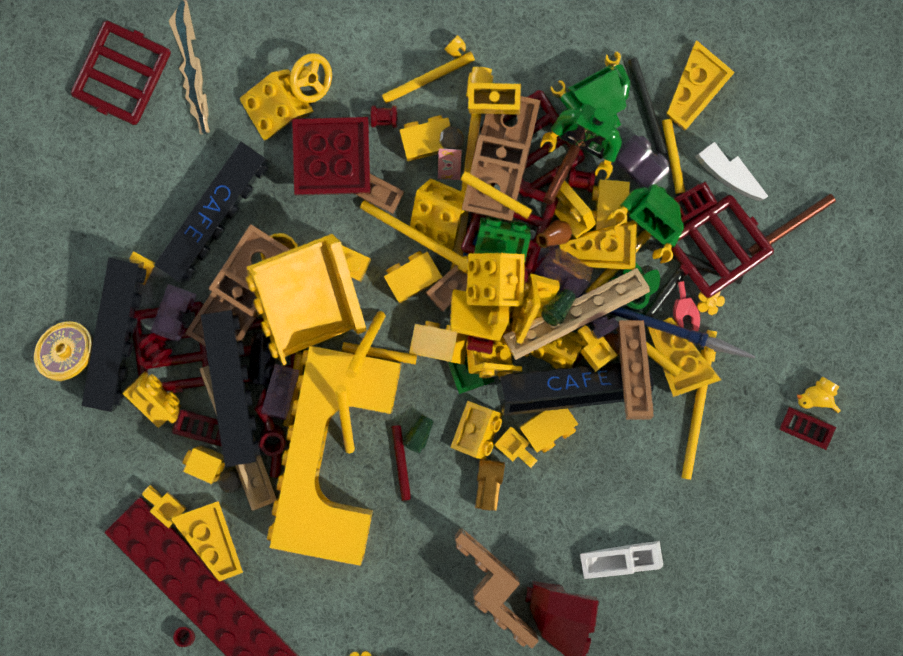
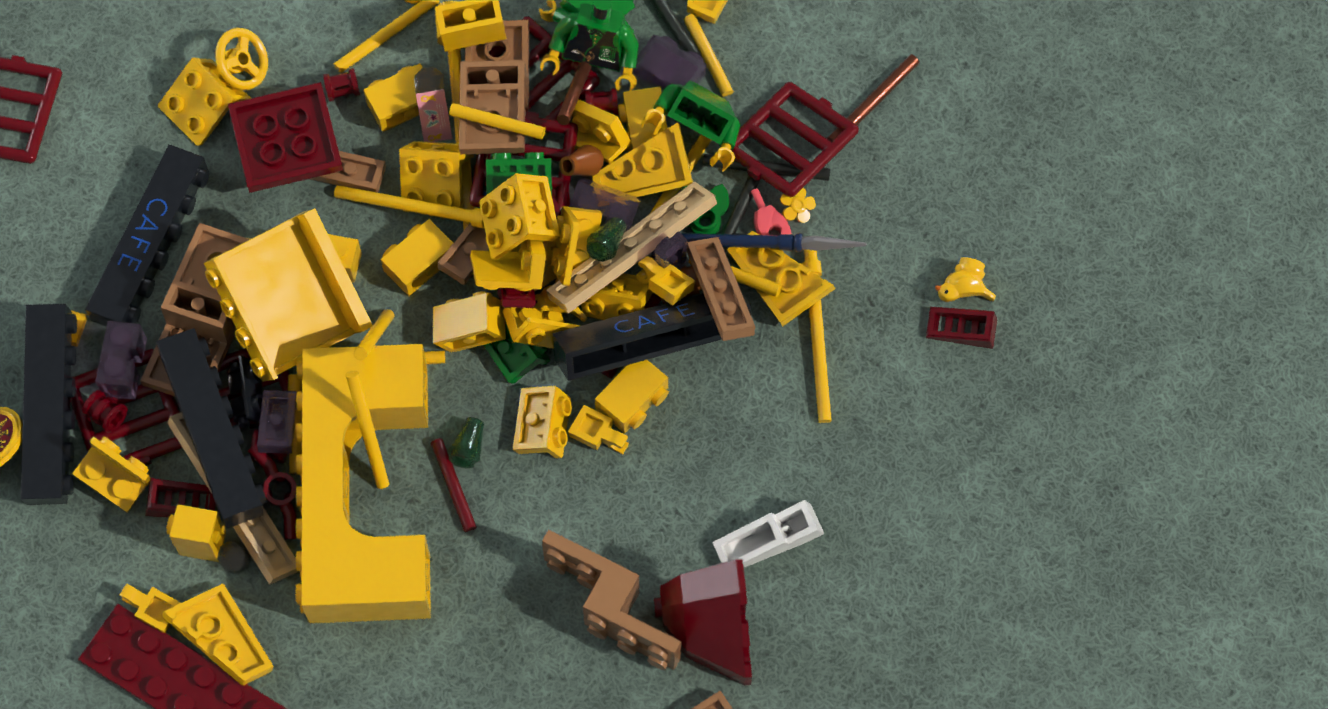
camera: 15 degrees left, 20 degrees down
(191, 67) = (90, 85): tan sword -> none
(489, 478) = (572, 476): pearl gold piece -> none
(706, 192) = (764, 89): dark red slope -> none
(732, 173) = (782, 55): white slope -> none

